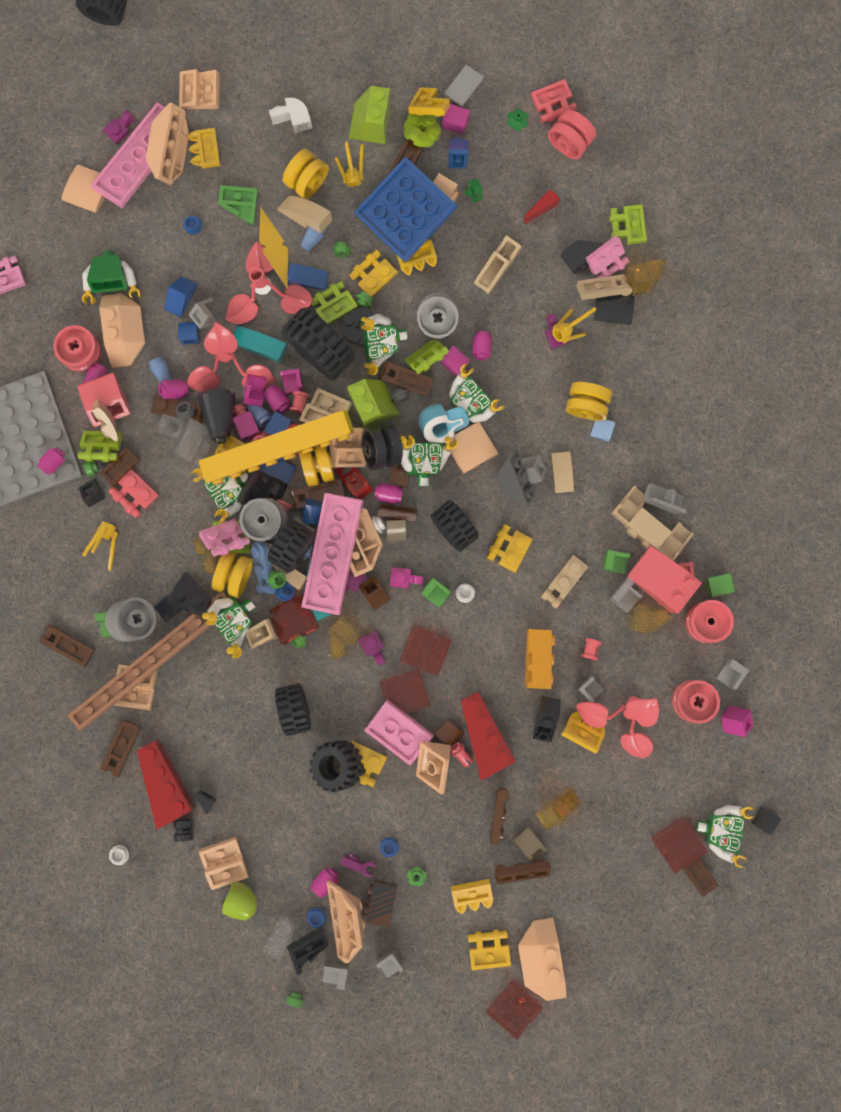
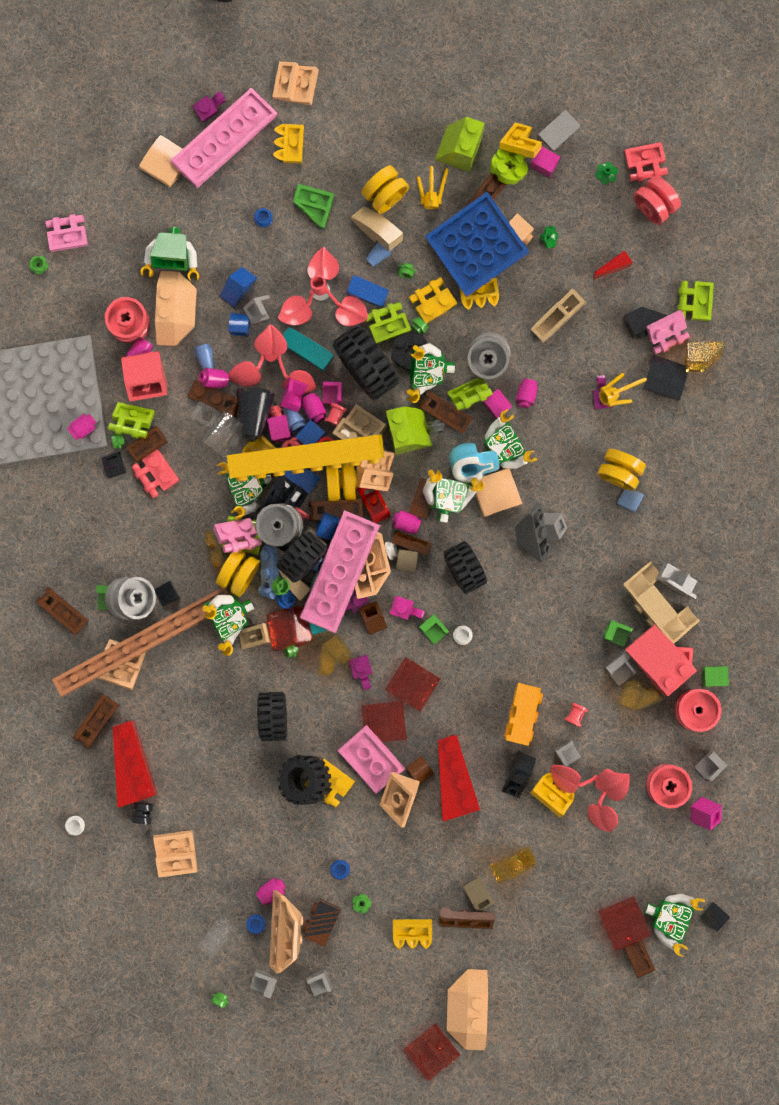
camera: 10 degrees right, 0 degrees up
(104, 531) = (119, 506): yellow plant -> none
(108, 423) = (144, 400): tan slope -> none
(168, 144) = (254, 134): light nougat wedge -> none
(185, 411) = (222, 402): dark grey plate -> none
(189, 596) = (191, 586): black wing -> none
(205, 800) = (170, 789): black slope -> none
(239, 902) = (185, 894): lime piece -> none
(274, 251) = (339, 258): yellow sticker -> none
(295, 111) = (386, 123): white brick -> none
(307, 948) = (241, 952): black wing -> none
(352, 861) = (302, 877): magenta plate -> none
(382, 447) = (408, 476): black wheel -> none
(458, 153) = (540, 196): blue slope -> none
(458, 751) = (426, 789): coral pin -> none
(489, 956) = (418, 994): yellow plate -> none
(498, 816) = (453, 859): reddish brown plate -> none
(515, 550) = (520, 602): yellow plate -> none
(562, 472) = (582, 534): tan slope -> none
(565, 581) = (563, 642): tan plate -> none
(604, 287) = (659, 358): tan plate -> none

